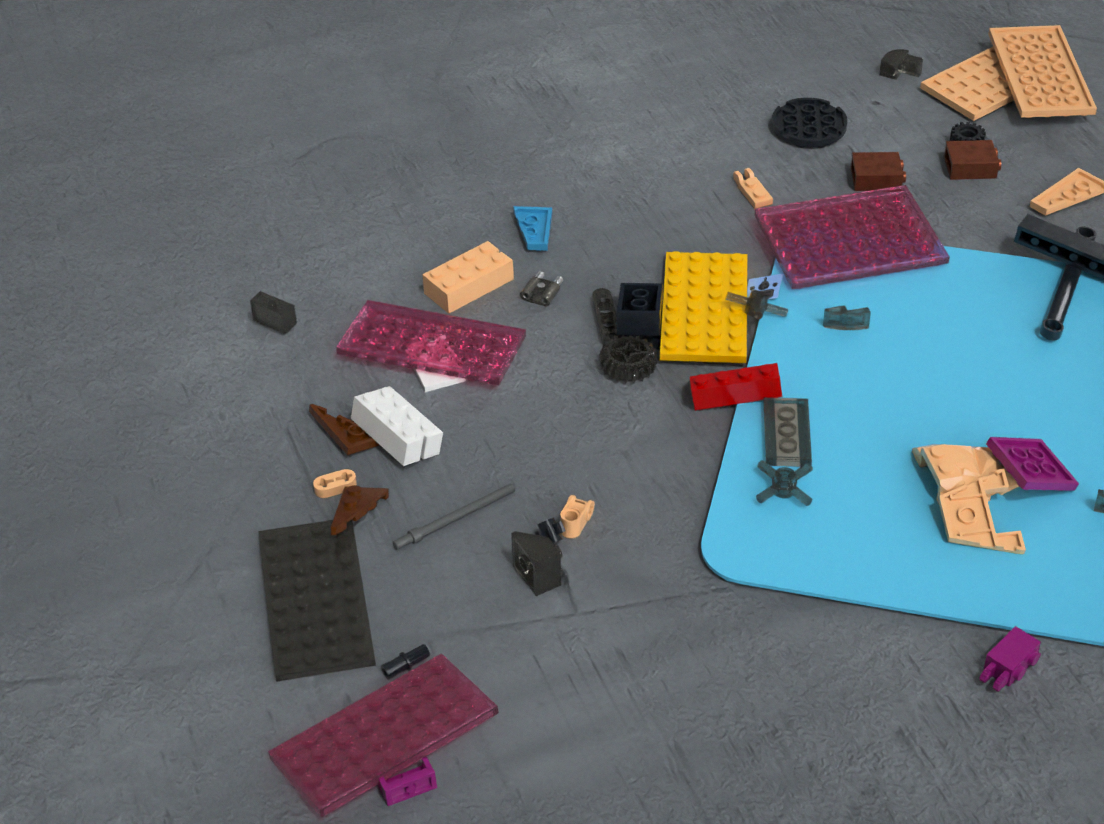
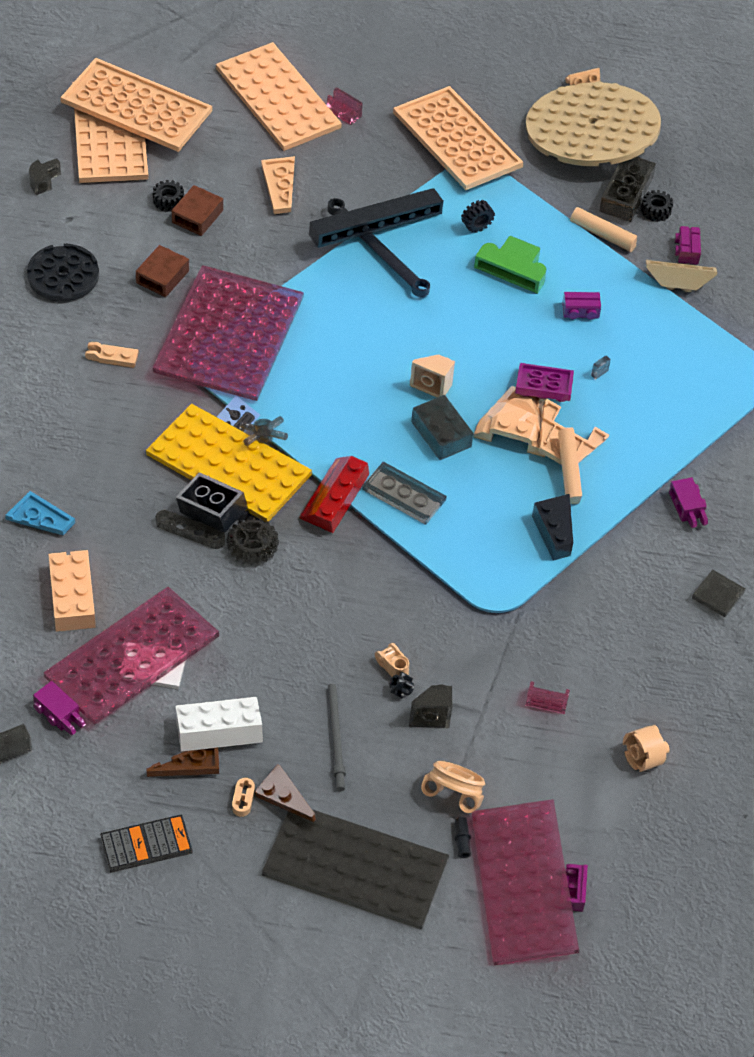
camera: 65 degrees left, 10 degrees up
(238, 444) = (146, 843): none -> tile
(336, 323) = (58, 708): none -> magenta hinge
(456, 633) = (457, 779): none -> light nougat piece
(541, 290) = (122, 553): clear smoke piece -> none
(629, 759) = (645, 748): none -> light nougat brick
(634, 653) = (547, 699): none -> clear pink hinge
(784, 482) = (458, 523): clear smoke bar -> none
(843, 319) = (319, 390): clear smoke slope -> none
(855, 555) = (555, 525): none -> black wedge
(891, 418) = (442, 427): none -> clear smoke brick
(910, 742) = (718, 593): none -> clear smoke tile
(941, 530) = (569, 464): none -> light nougat brick
(946, 380) = (432, 374): none -> light nougat slope

